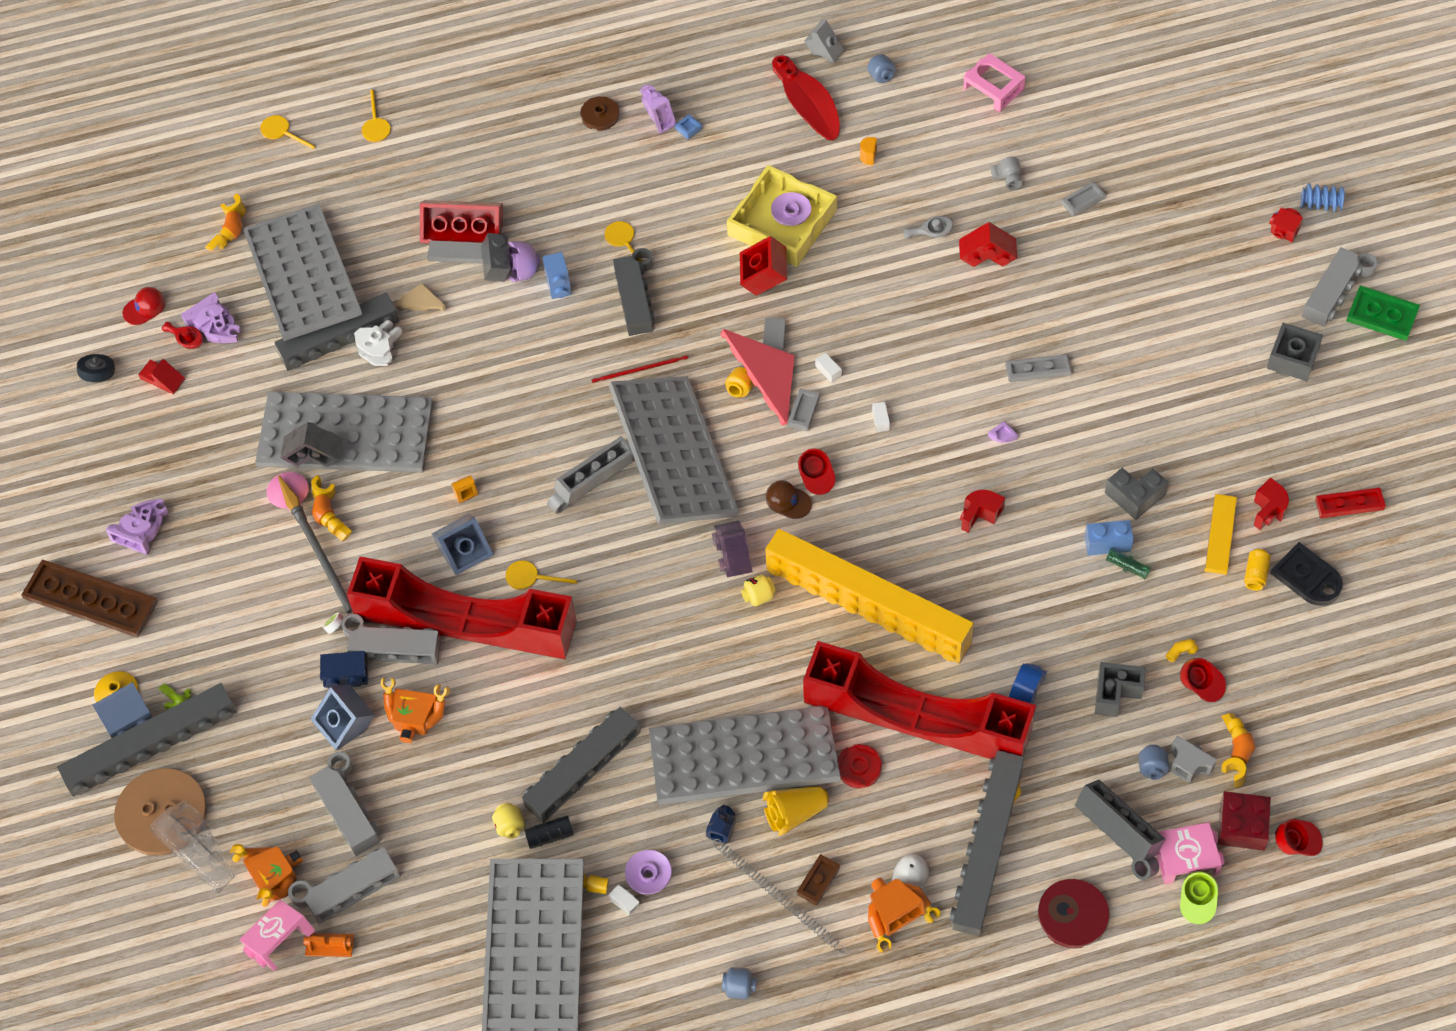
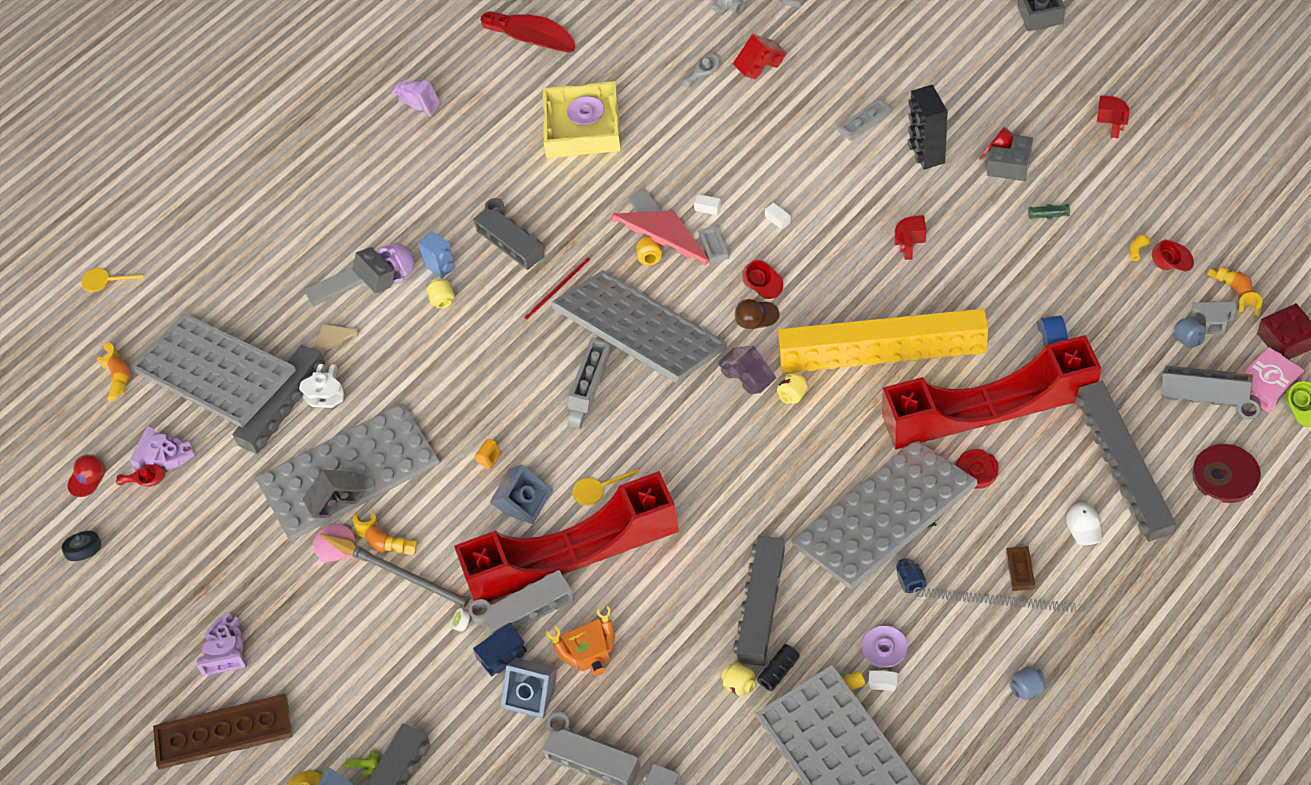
camera: 30 degrees left, 5 degrees down
(162, 376) = (147, 519): red slope -> none
(376, 128) = (186, 235): yellow piece -> none
(459, 220) = (318, 261): red slope -> none
(536, 313) = (440, 293): none -> light yellow head
(599, 113) = (370, 126): reddish brown plate -> none
(620, 234) = (459, 203): yellow piece -> none
(688, 126) = (451, 99): medium blue tile -> none
(763, 265) = (599, 159): red brick -> none
(793, 806) = (955, 528): yellow cone -> none
(868, 150) = (609, 41): light orange brick -> none
(896, 906) = (1098, 550): orange torso -> none
(1003, 433) = (878, 177): lavender tile -> none
(1070, 413) = (927, 127): none -> black brick
(1108, 535) = (1016, 202): medium blue brick -> none
(1117, 682) = (1117, 296): dark grey brick -> none
(1136, 467) = (1002, 140): none -> red cap
(1220, 534) = (1095, 155): yellow tile -> none
(1257, 569) = (1143, 162): yellow head -> none
(1308, 575) = (1181, 146): black plate -> none
(1350, 502) = (1165, 83): red plate -> none

